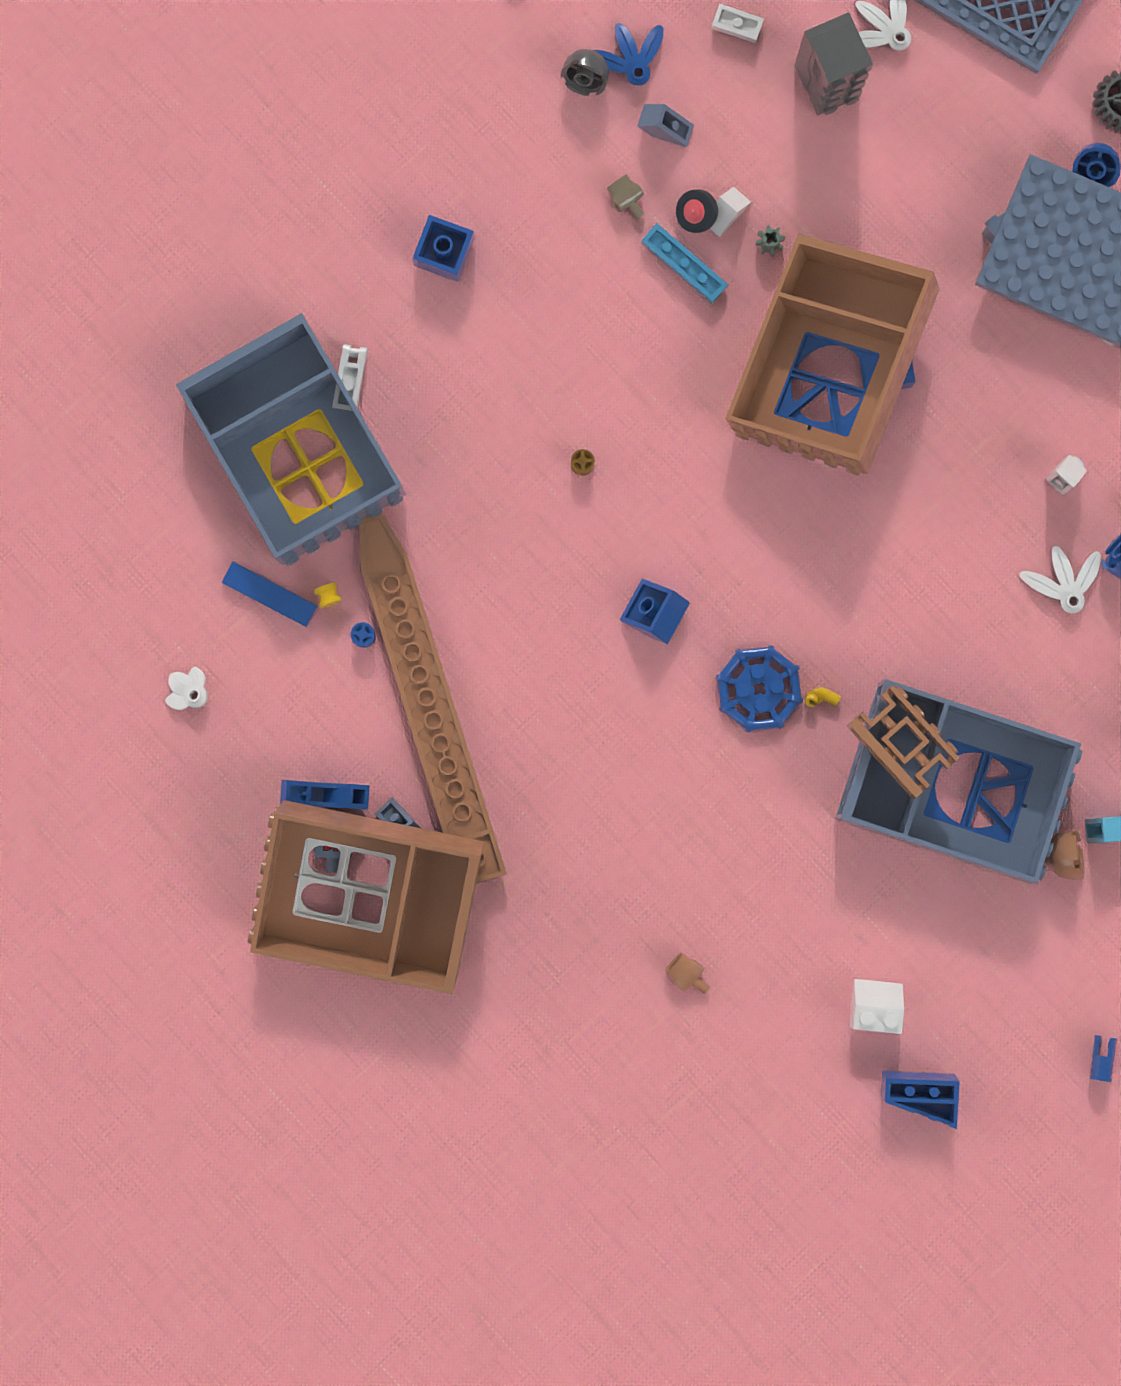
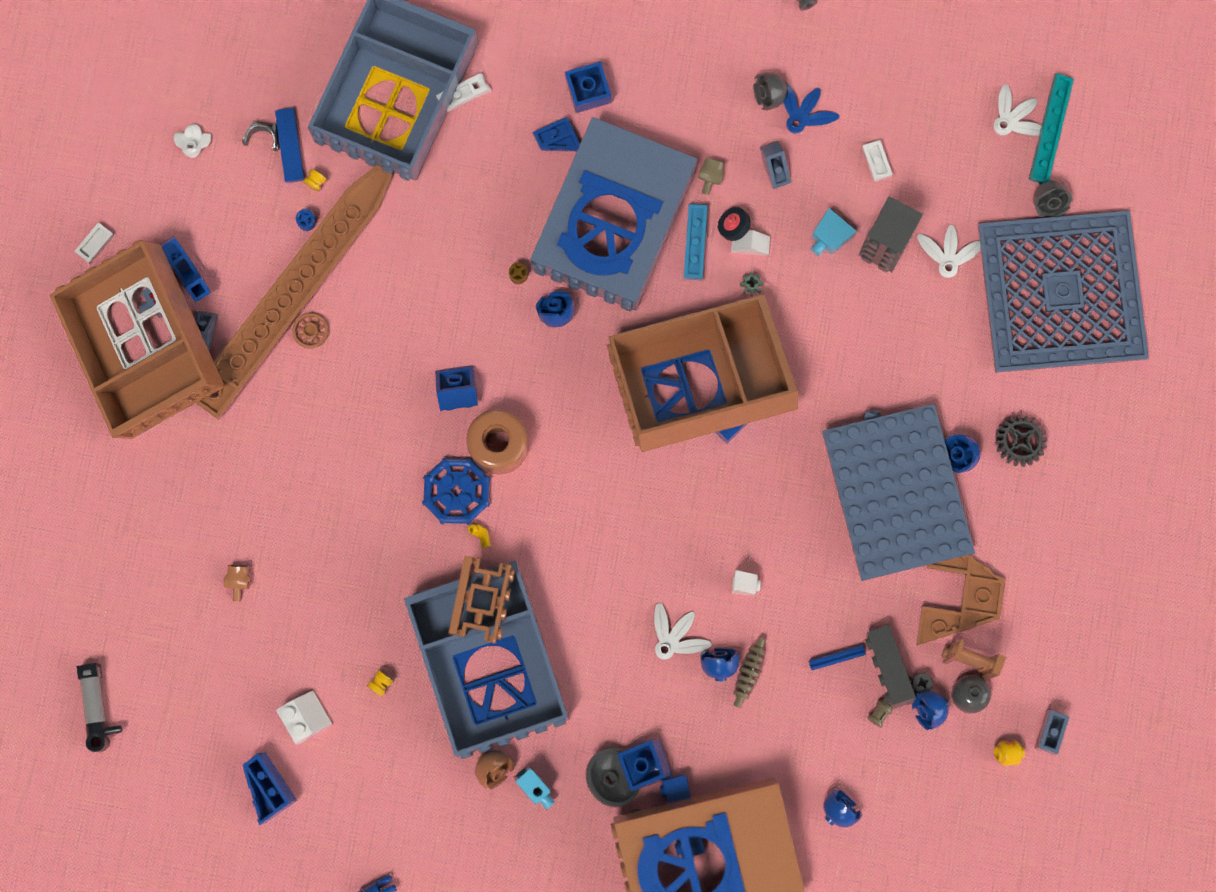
camera: 60 degrees right, 5 degrees down
(220, 868) = (94, 243): none -> white tile
(224, 611) = (260, 126): none -> dark grey helmet
(470, 318) = (557, 137): none -> blue wing
(482, 714) = (310, 331): none -> nougat wheel
(566, 268) = (629, 168): none -> sand blue panel
(651, 451) = (556, 309): none -> blue cylinder
(709, 1211) = (93, 707): none -> piece
(726, 627) = (489, 424): none -> nougat piece
(778, 124) = (831, 233): none -> medium azure torso
(898, 906) = (380, 683): none -> yellow wheel

